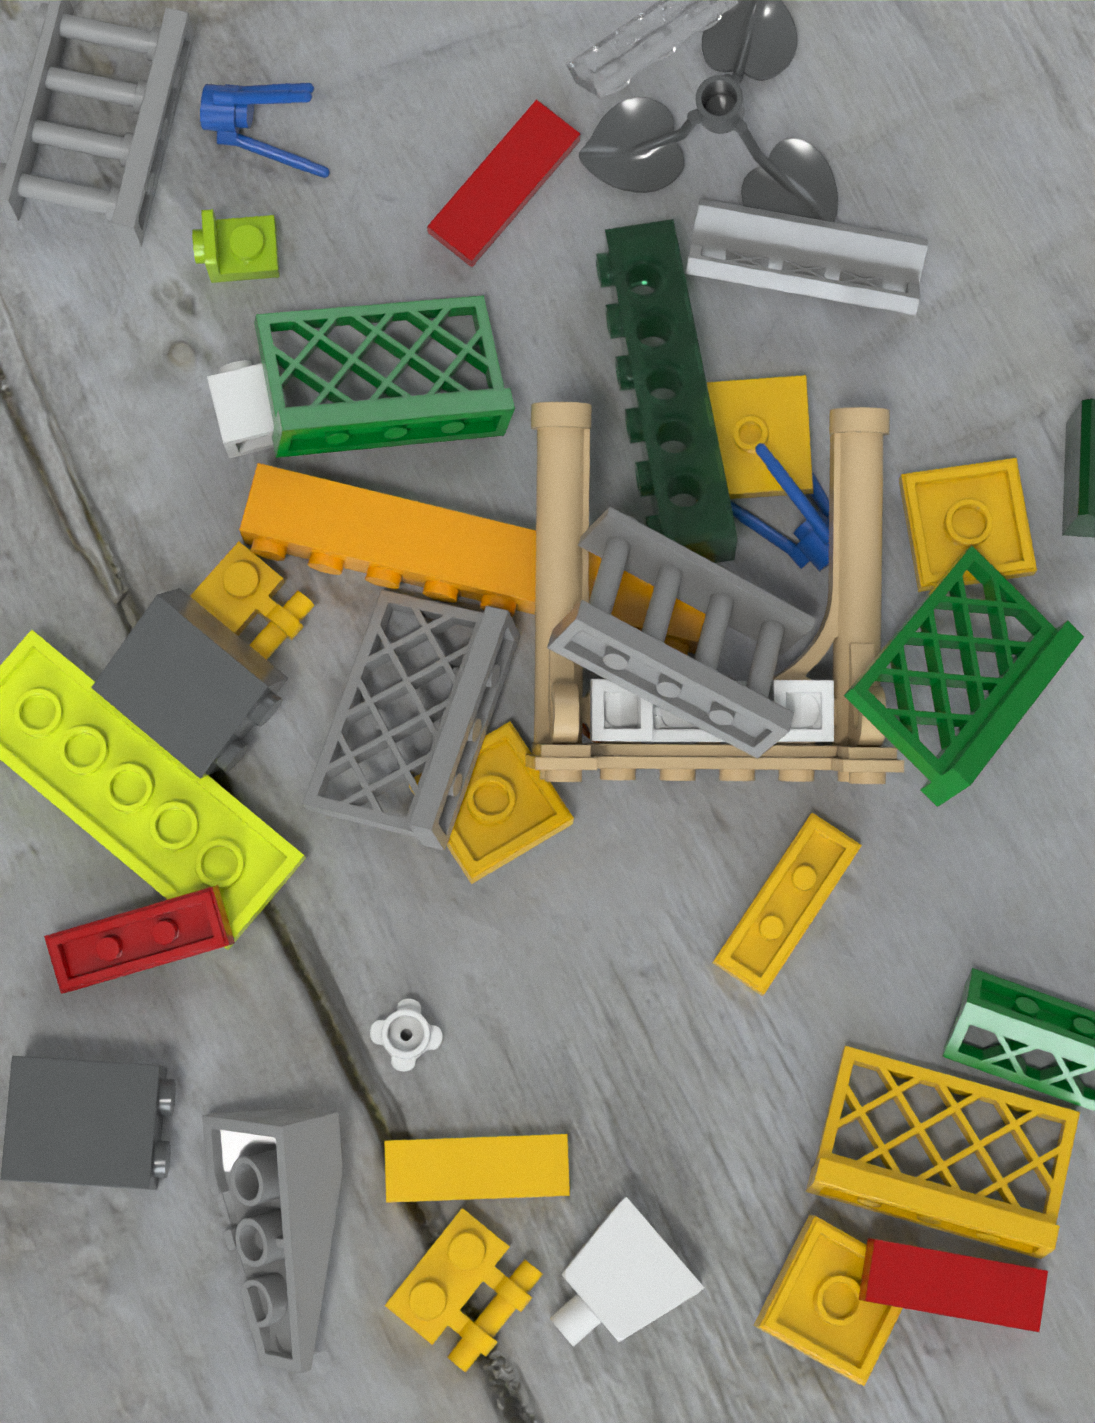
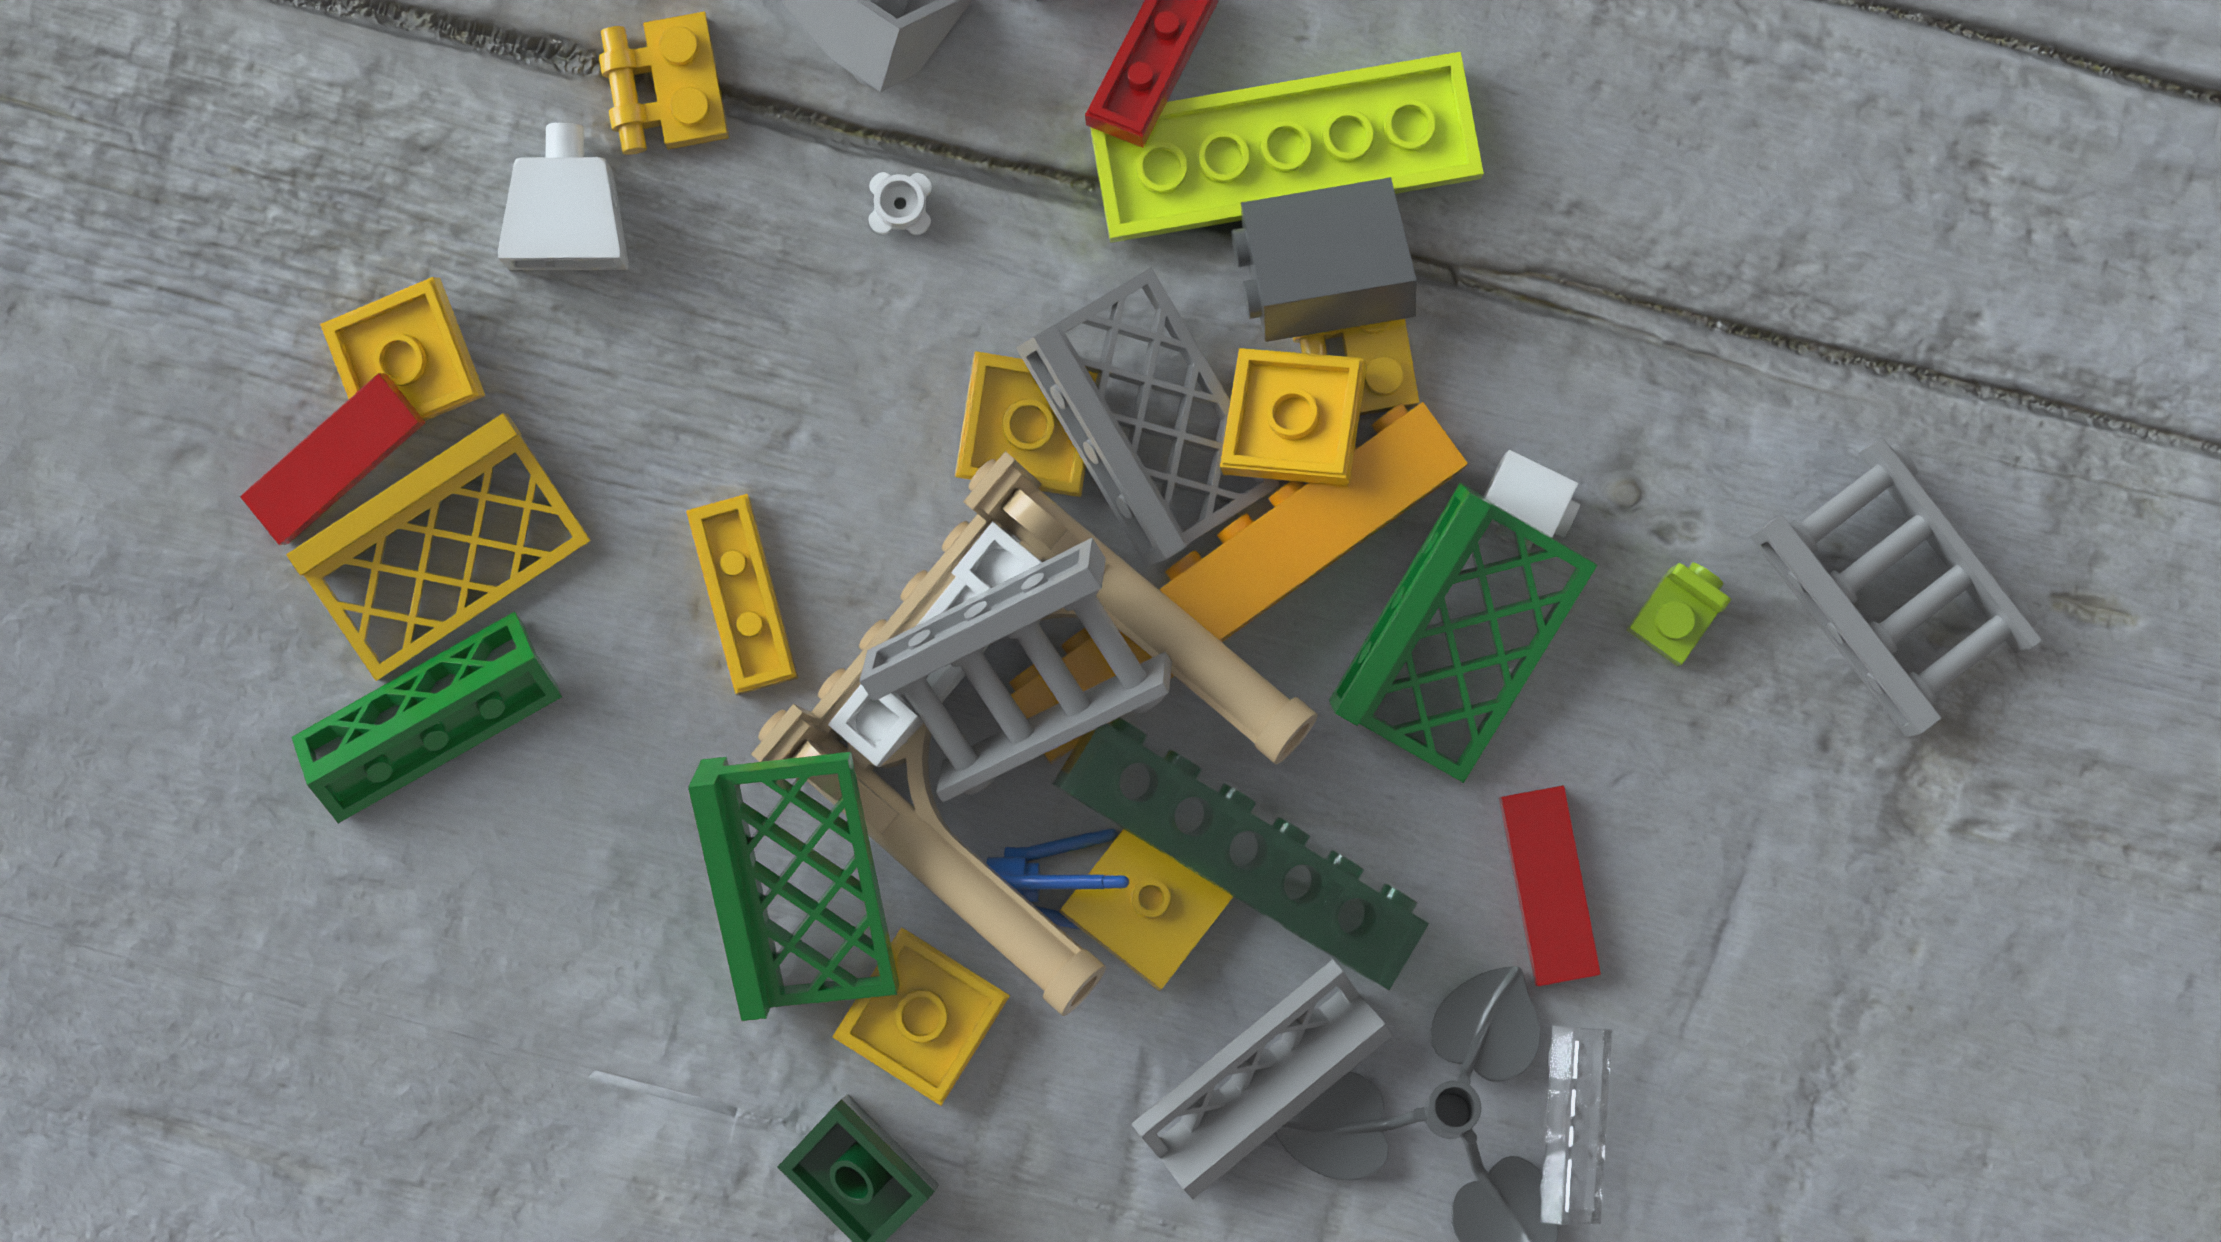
camera: 130 degrees right, 5 degrees up
(232, 107) = (1807, 708): blue plant -> none
(326, 612) = (1293, 416): none -> yellow plate
(476, 1168) = (748, 171): yellow tile -> none

